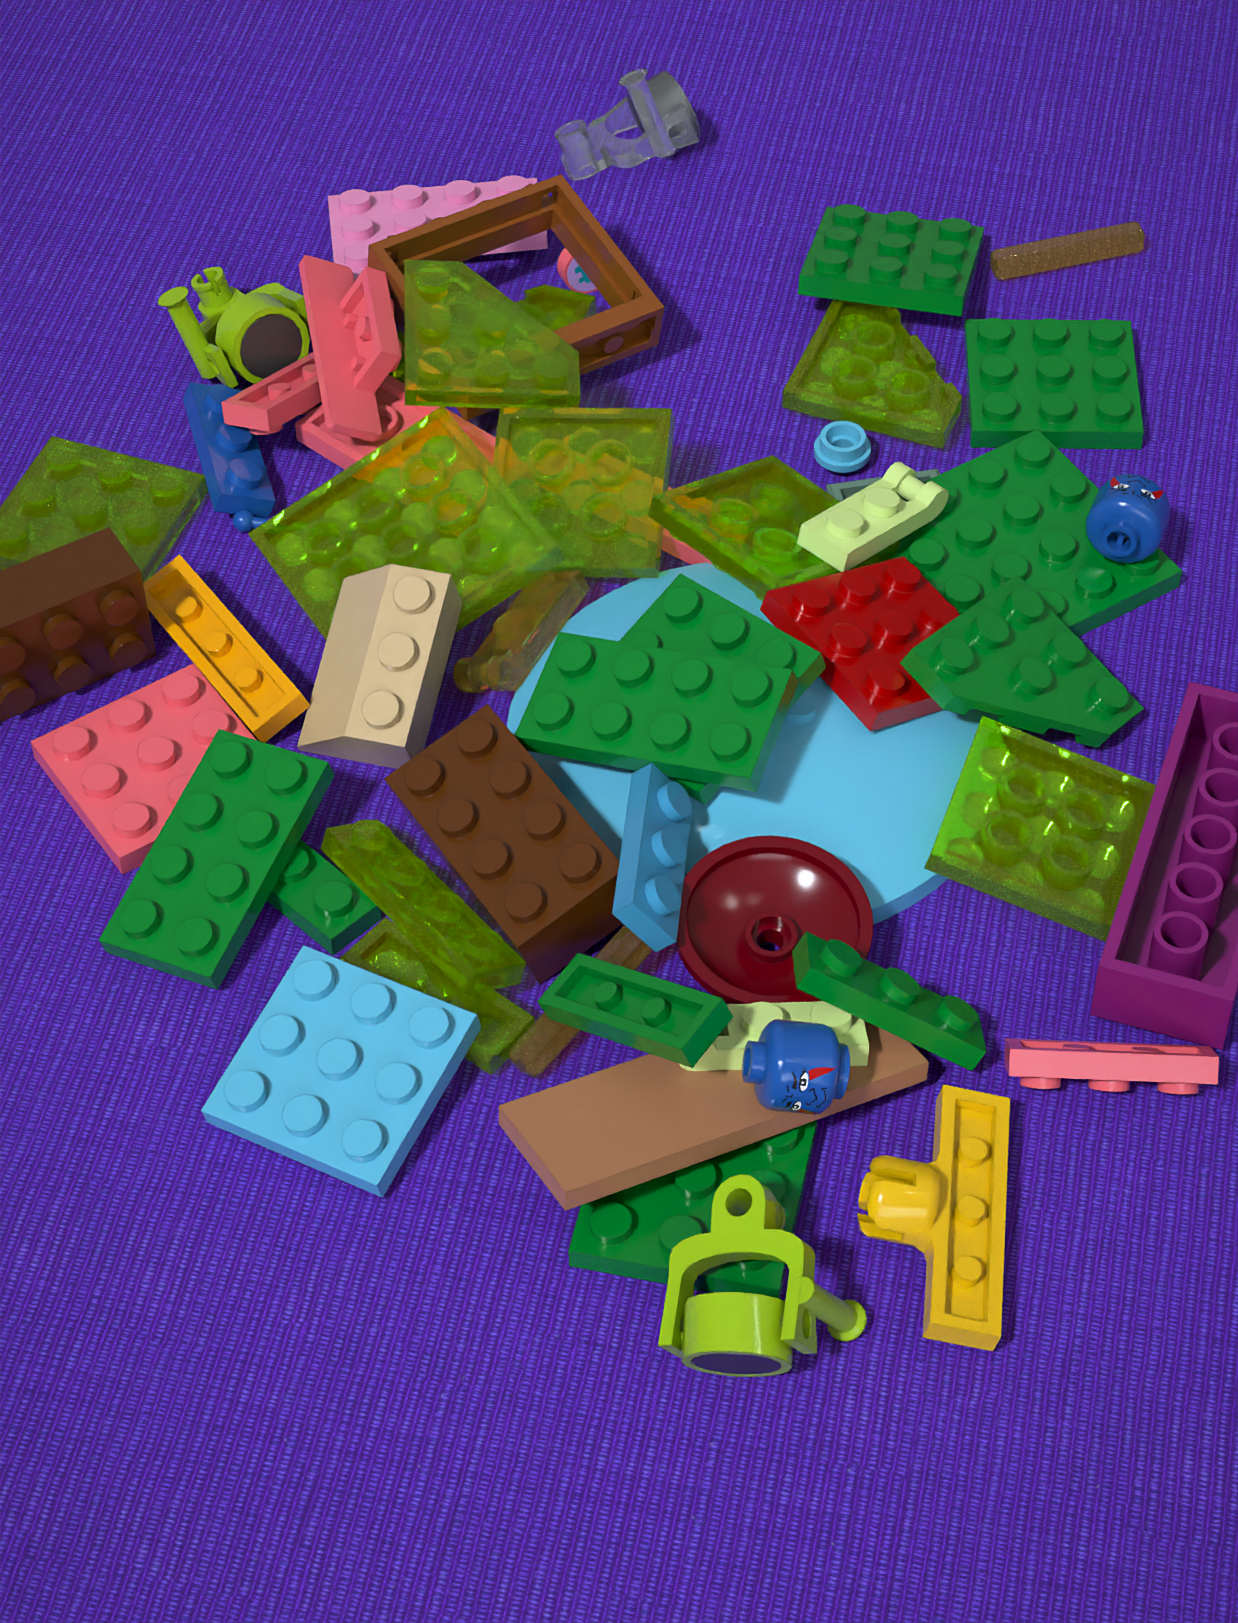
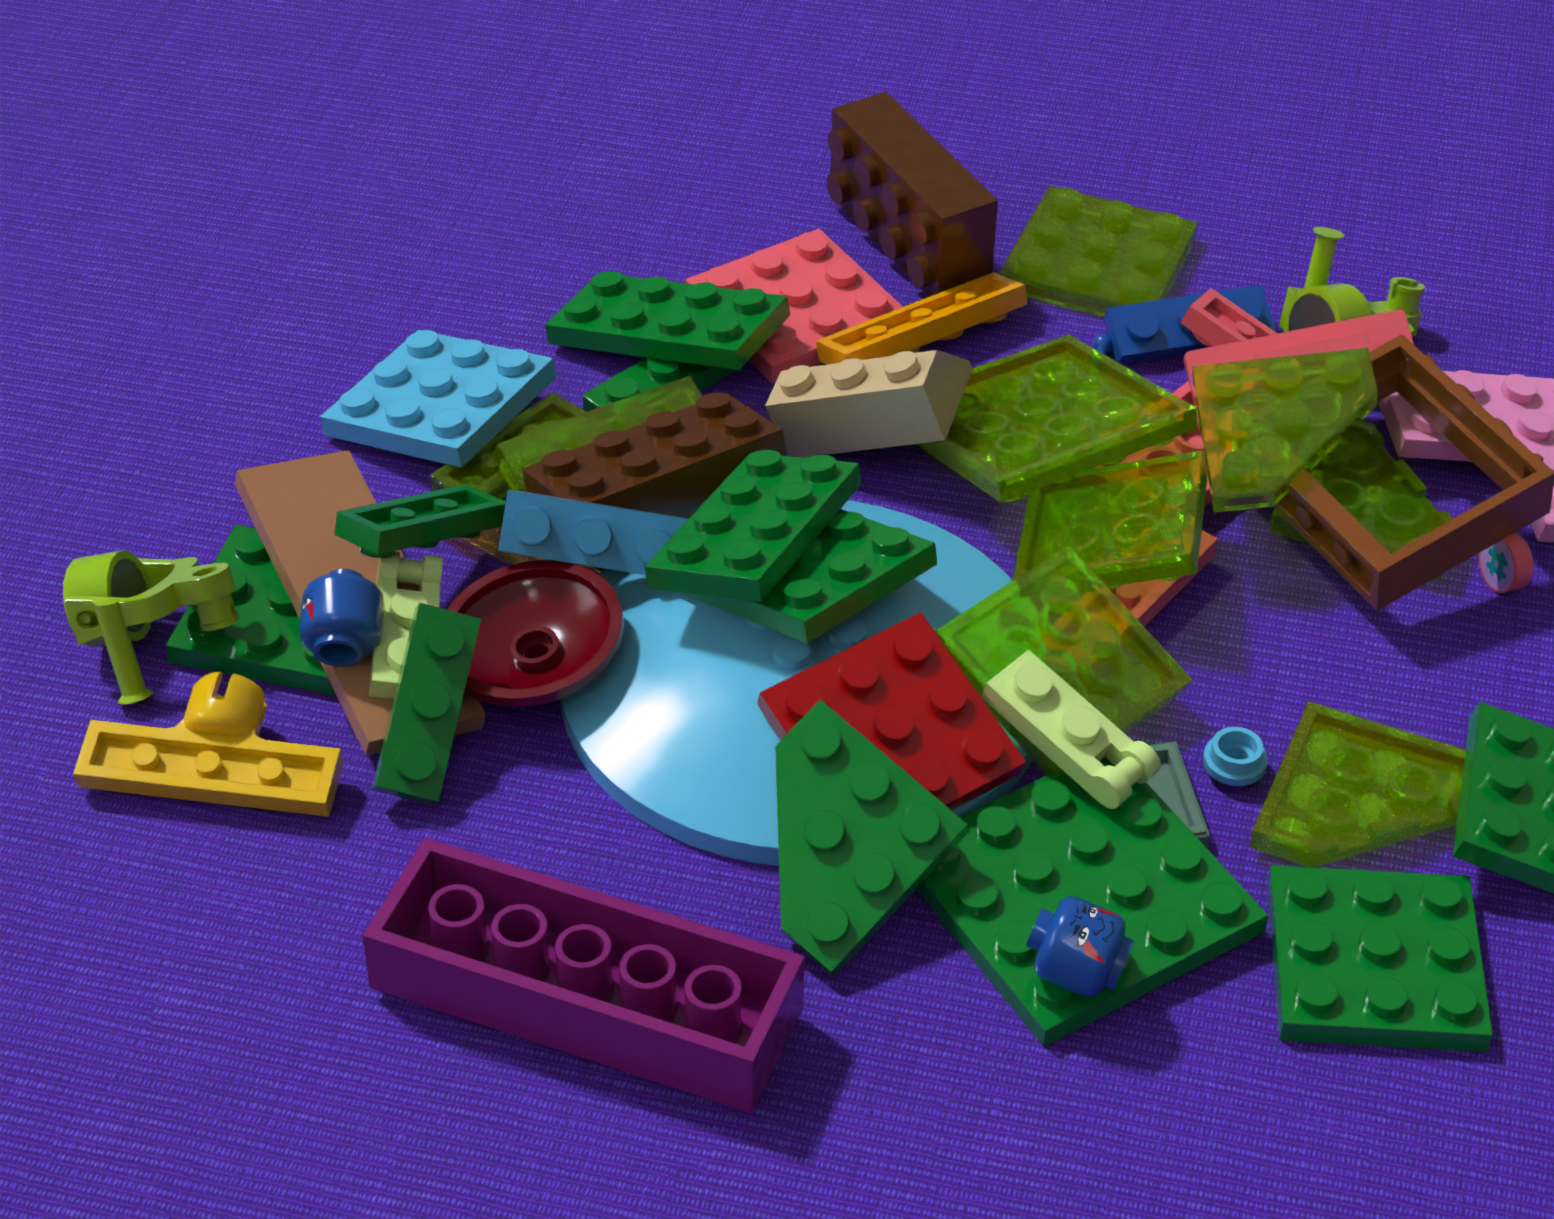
camera: 90 degrees right, 5 degrees down
(522, 633) = (941, 506): clear yellow plate -> none
(1041, 828) = (659, 835): clear neon green plate -> none
(1111, 1064) = (354, 882): coral plate -> none

